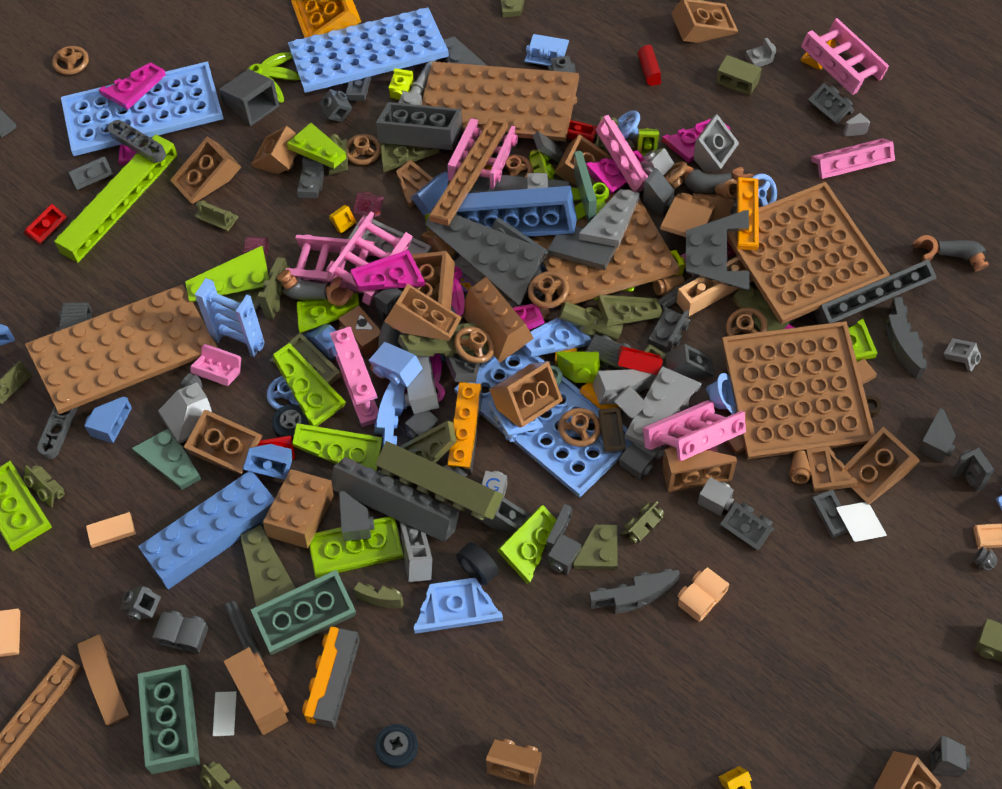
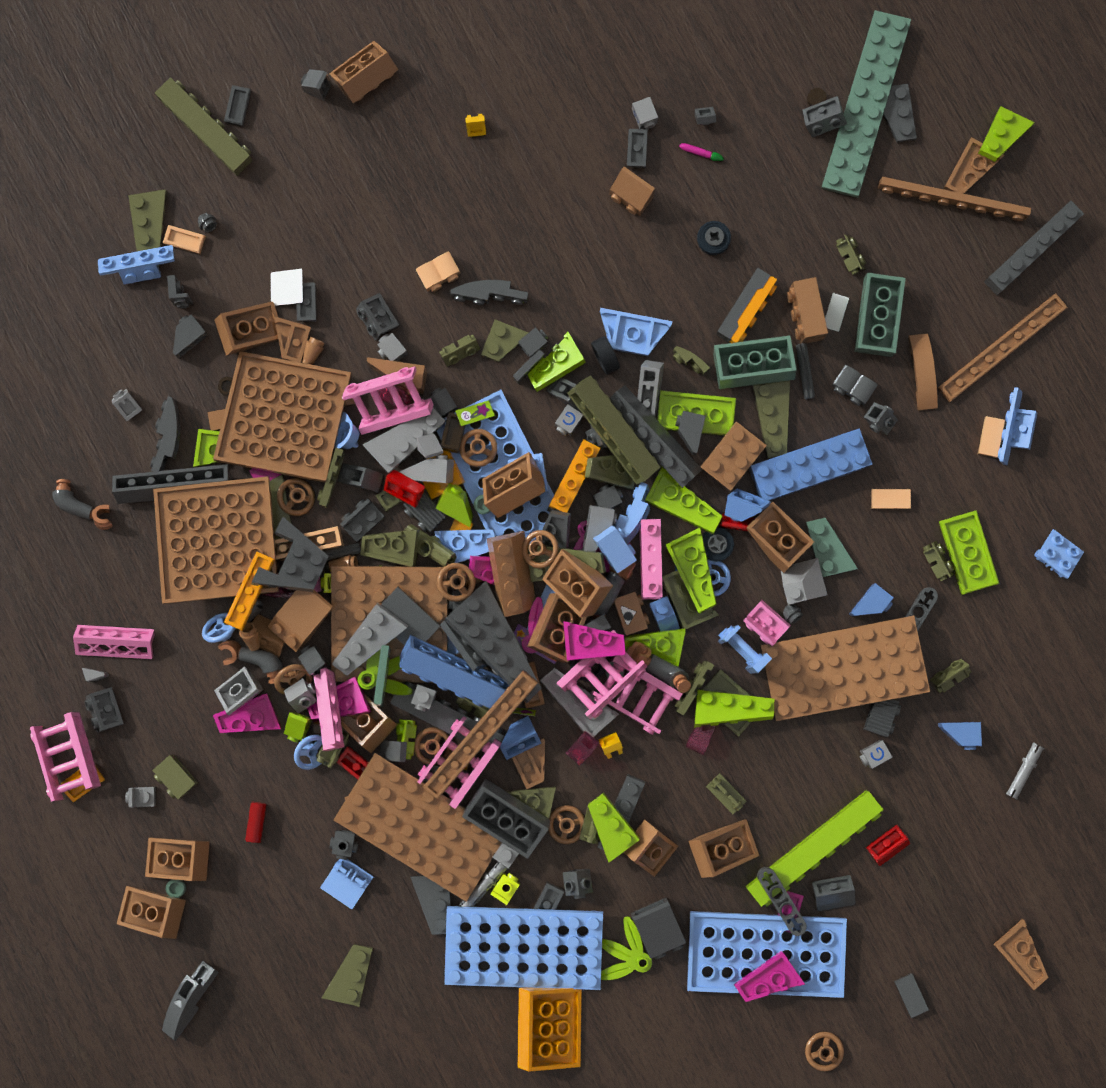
camera: 160 degrees left, 25 degrees up
(73, 288) = (875, 754): none -> light grey brick
(597, 457) = (474, 413): none -> lime sticker
(718, 350) = (325, 495): none -> olive wing

